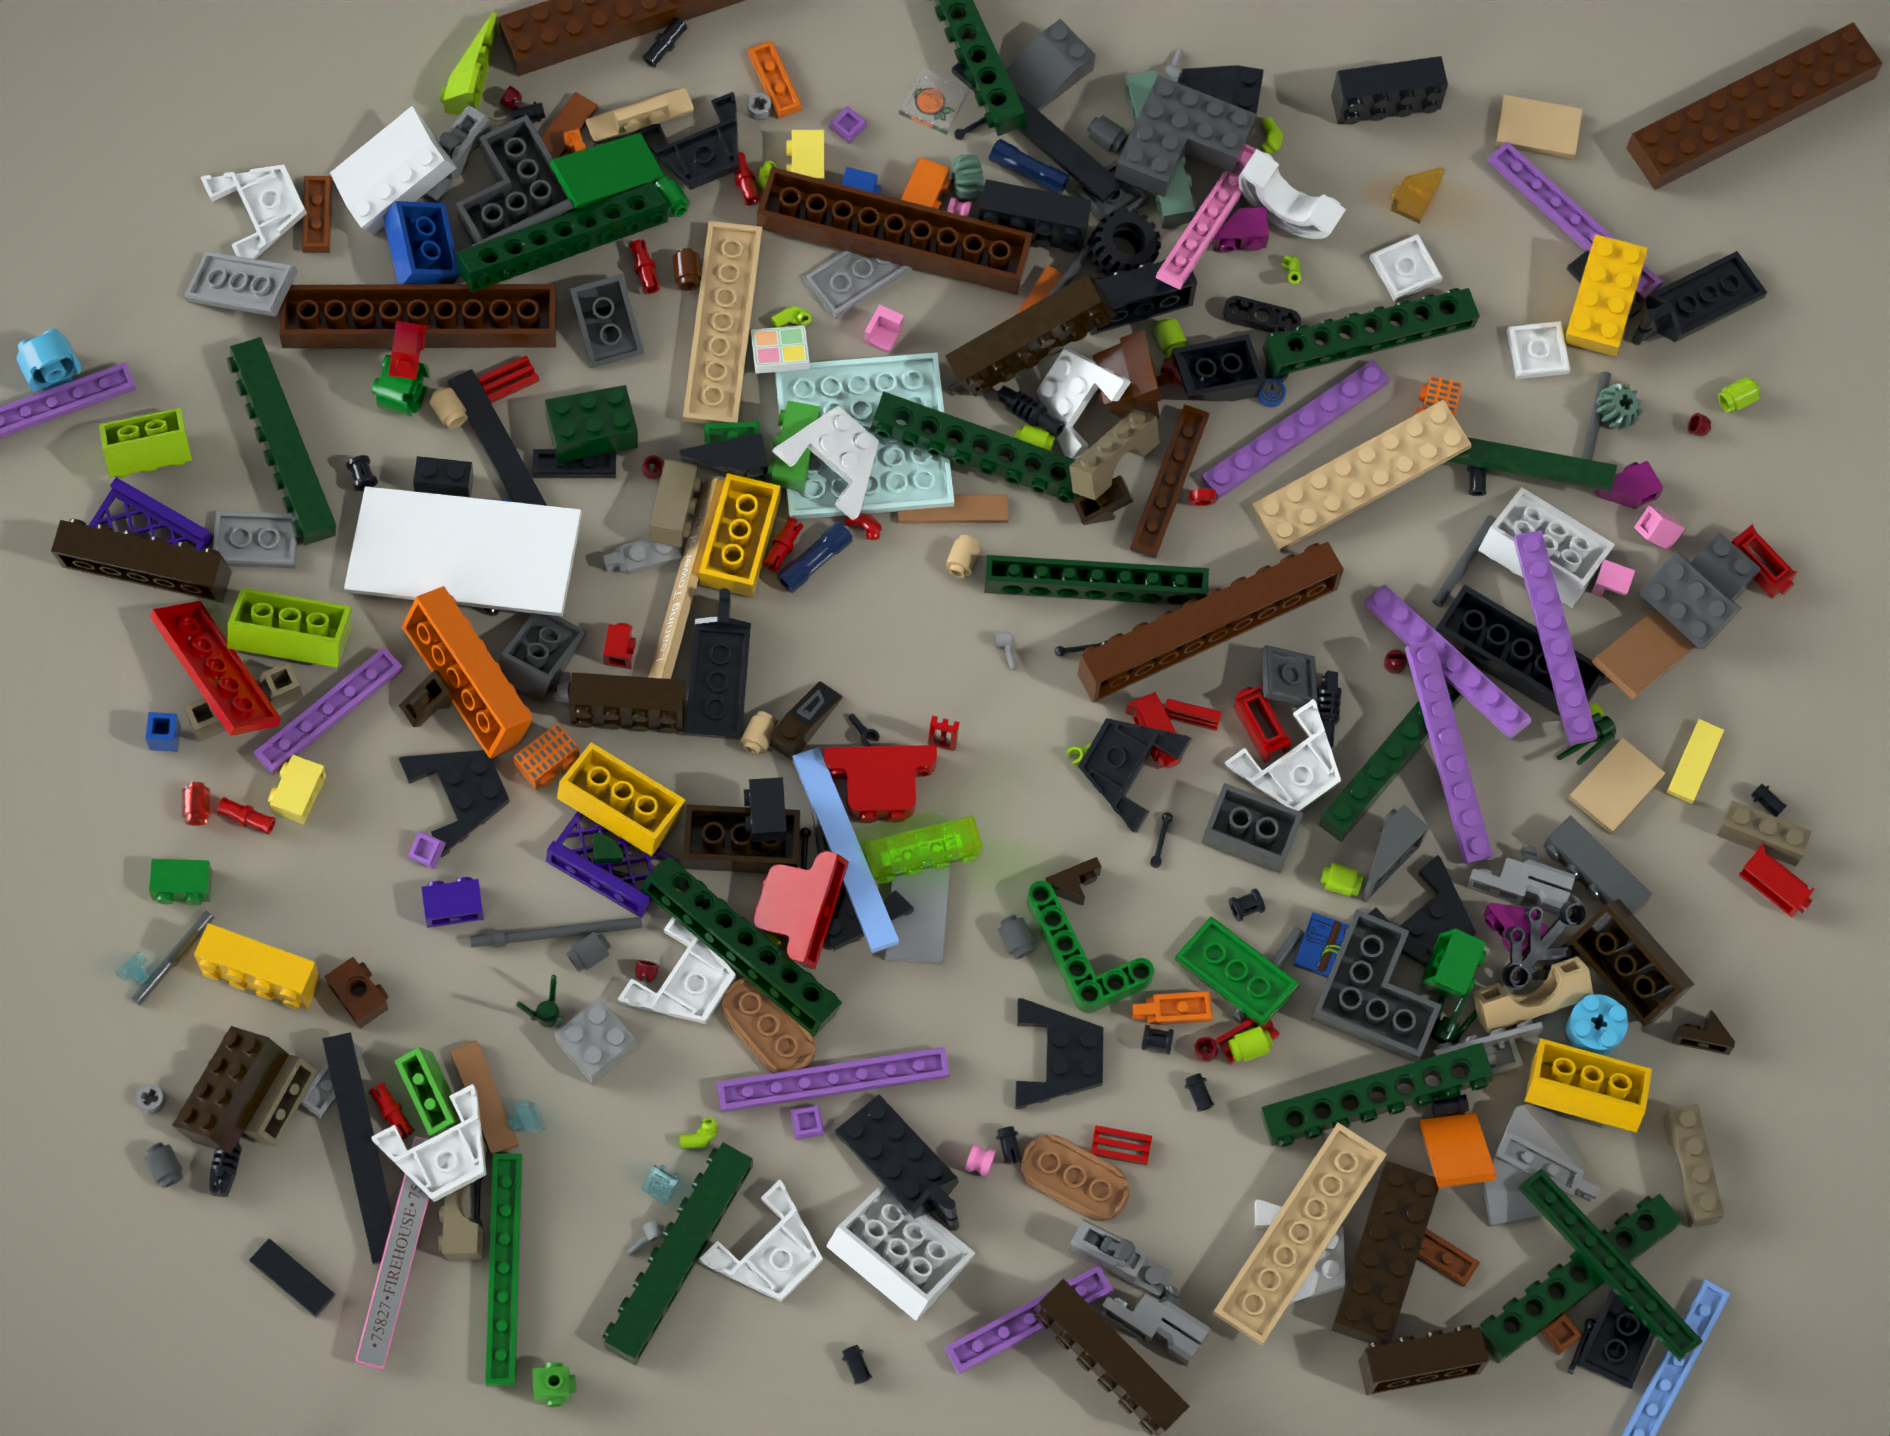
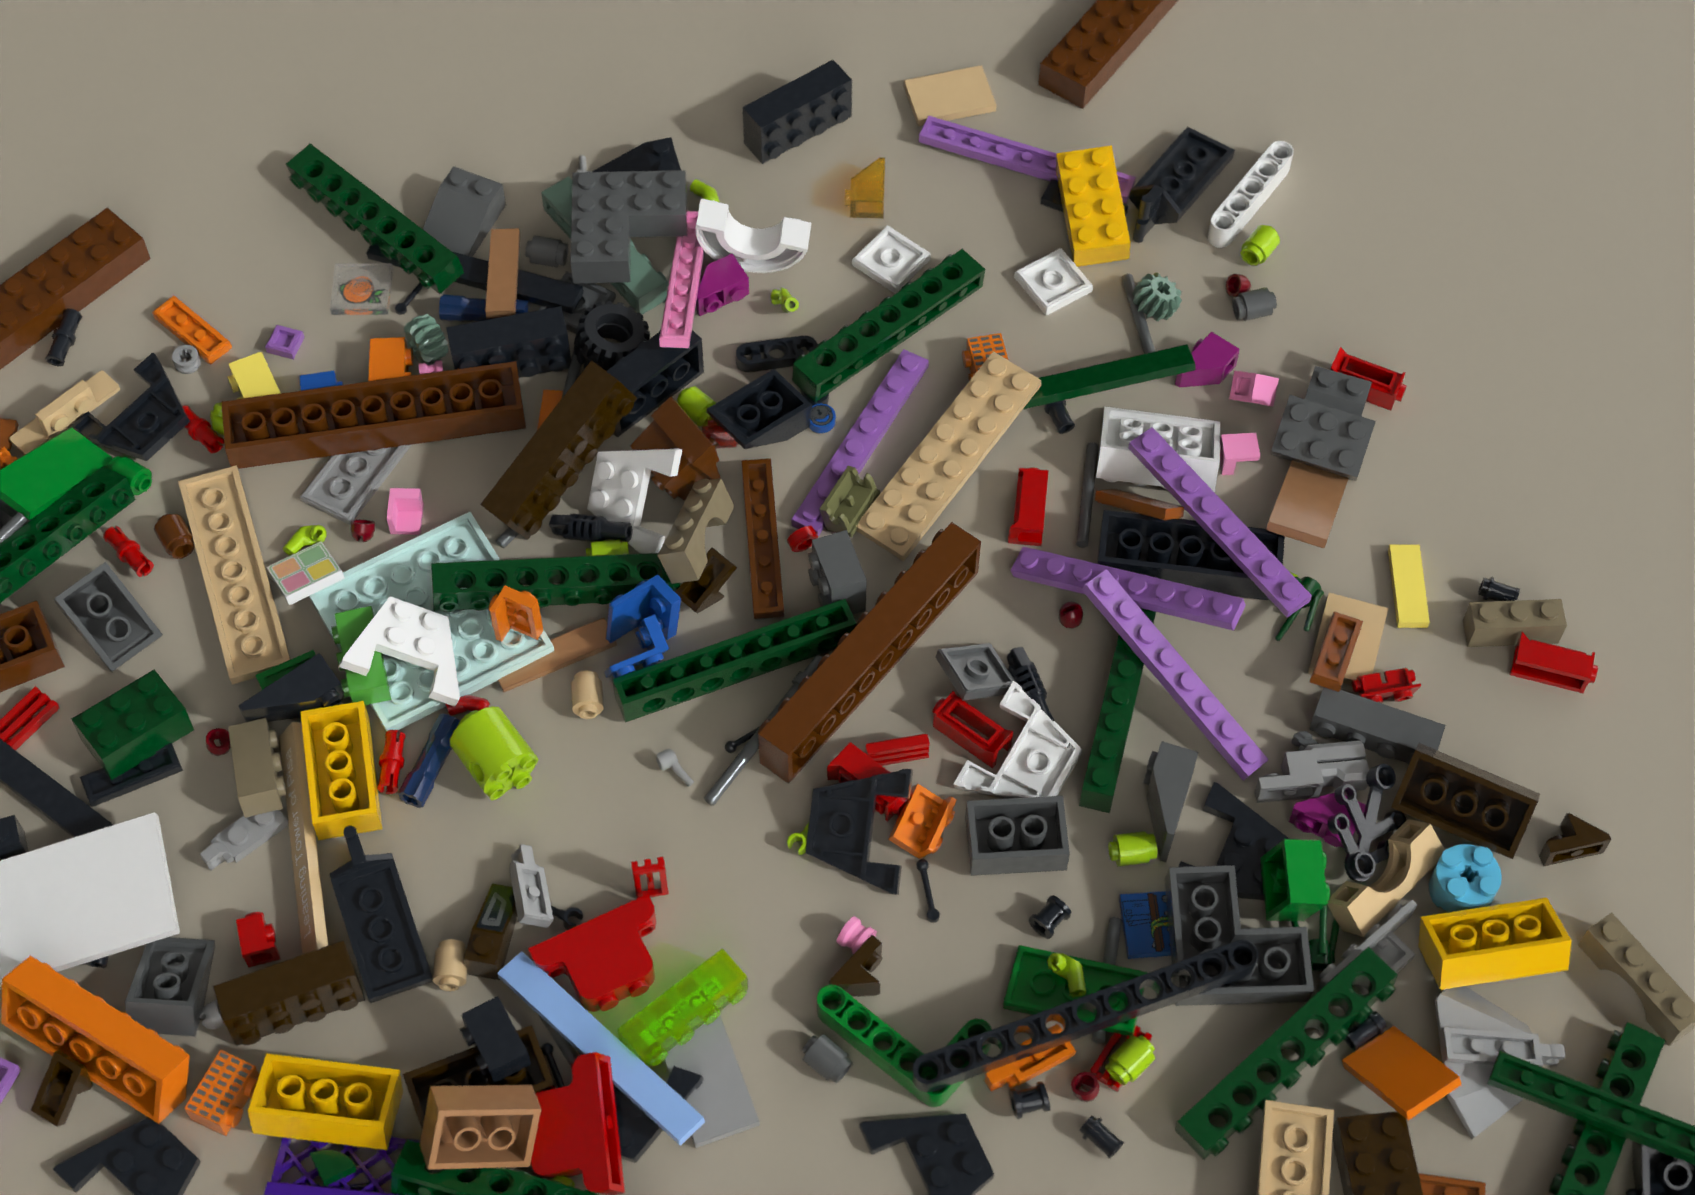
camera: 20 degrees left, 10 degrees down
(727, 871) = (480, 1126): none -> medium nougat brick
(843, 329) = (362, 528): none -> dark red hinge
(846, 699) = (530, 889): none -> light grey hinge
(866, 573) = (493, 751): none -> lime cylinder
(934, 461) = (517, 612): none -> orange bracket
(1033, 529) = (649, 637): none -> blue bracket
(1046, 498) = (644, 601): none -> blue bracket
(1059, 141) = (502, 273): none -> medium nougat tile
(1074, 660) = (753, 744): none -> dark grey bar
(1084, 849) = (854, 934): none -> bright pink wheel
(1183, 782) = (922, 822): none -> orange bracket
(1214, 542) = (837, 571): none -> dark grey brick
(1239, 955) = (1070, 970): none -> lime arm
(1243, 990) = (1073, 1027): none -> black beam
(1256, 481) = (848, 501): none -> olive hinge
(1408, 551) = (1029, 507): none -> red window
(1499, 591) = (1139, 504): none -> dark orange tile
(1597, 791) = (1336, 651): none -> dark orange tile
(1634, 842) = (1397, 685): none -> red hinge
(1703, 449) = (1254, 304): none -> dark grey brick
(1750, 350) = (1250, 194): none -> white beam

